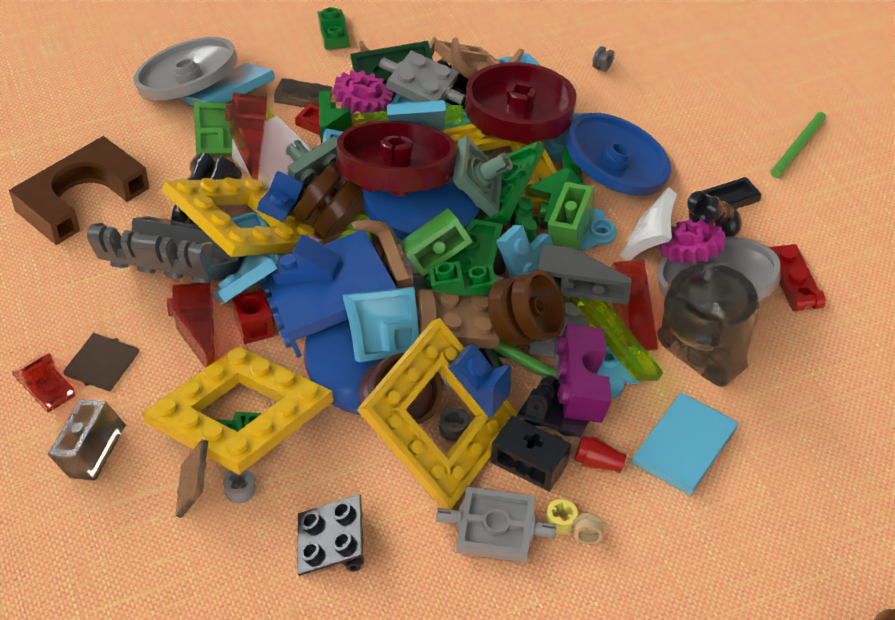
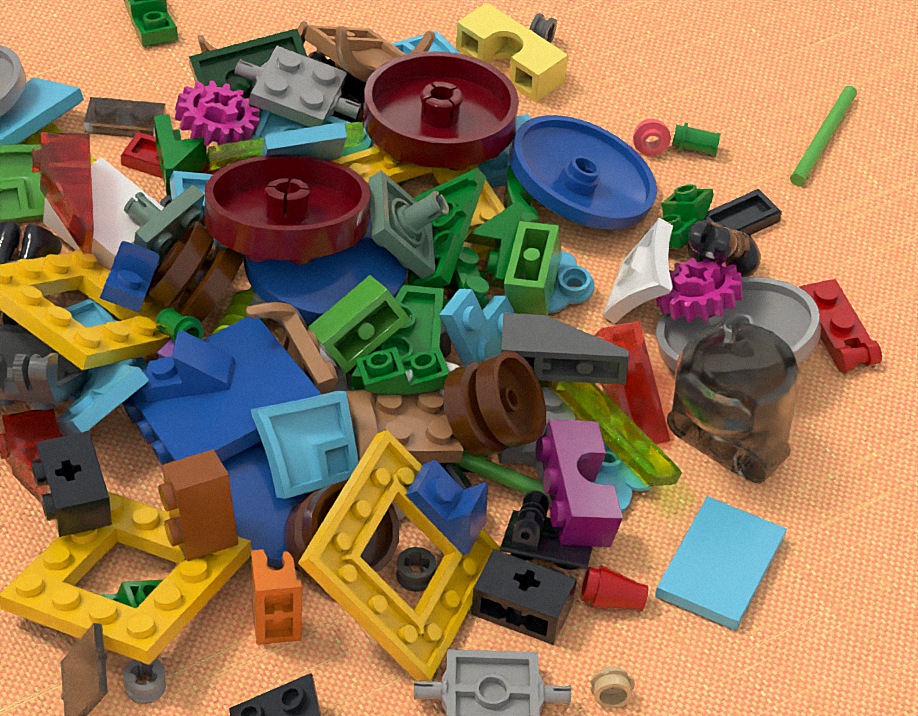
camera: 10 degrees left, 0 degrees up
(209, 337) = (73, 484): none -> black brick
(253, 317) = (120, 449): red brick -> none
(293, 359) = (198, 505): none -> dark orange brick
(305, 228) = (176, 322): none -> green pin
(342, 437) = (275, 600): none -> orange hinge
(567, 509) = (580, 665): light yellow bush -> none
(594, 78) = (535, 63): none -> light yellow arch
(672, 128) = (649, 128): none -> coral plate
(686, 184) = (685, 209): none -> green slope
(704, 139) = (695, 139): none -> green pin

